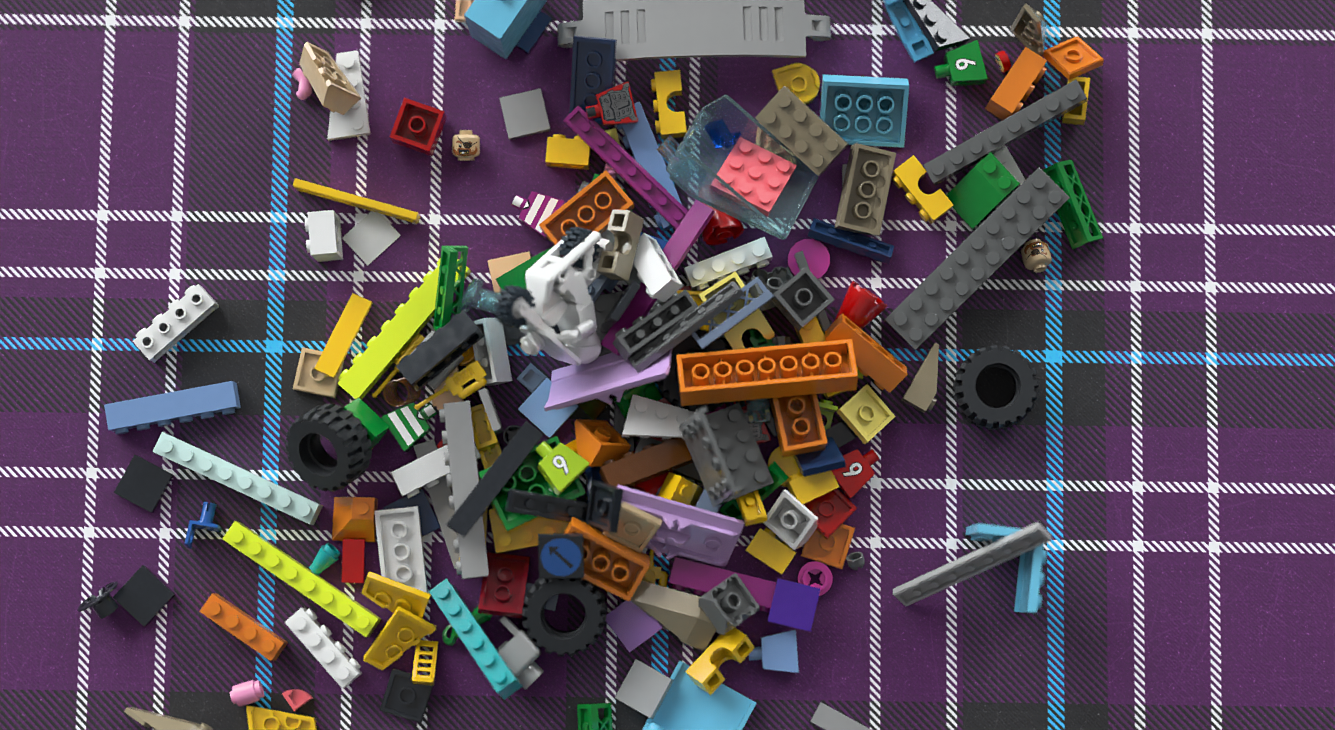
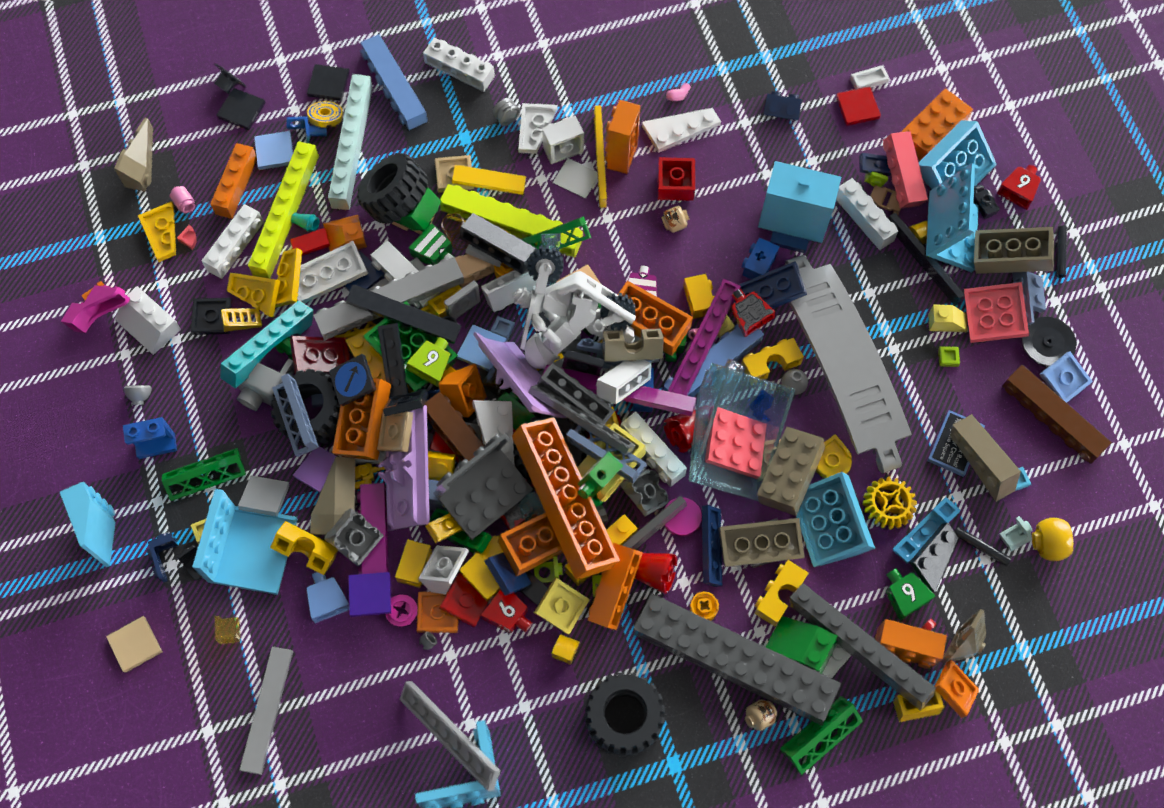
camera: 70 degrees right, 15 degrees down
(179, 496) = (317, 110): none -> yellow tile
(215, 571) = (273, 150): none -> light blue tile
(262, 288) = (506, 111): none -> light grey wheel
(288, 262) = (533, 119): none -> white wing
(327, 79) = (687, 102): tan wedge -> none
(354, 168) = (622, 136): none -> orange brick
(458, 380) = (476, 266): yellow piece -> none
(524, 114) = (719, 256): light grey tile -> none
(541, 61) = (765, 252): none -> blue brick
(576, 624) = (299, 414): none -> sand blue fence
(698, 89) = (795, 379): none -> light grey brick
(760, 330) = (596, 480): none -> torso
(802, 298) = (641, 510): dark grey brick -> none
(869, 52) = (874, 492): none -> yellow gear
(908, 424) = (565, 649): none -> yellow brick
(911, 271) = (704, 605): none -> light orange wheel
(924, 385) = (605, 650): dark tan slope -> none

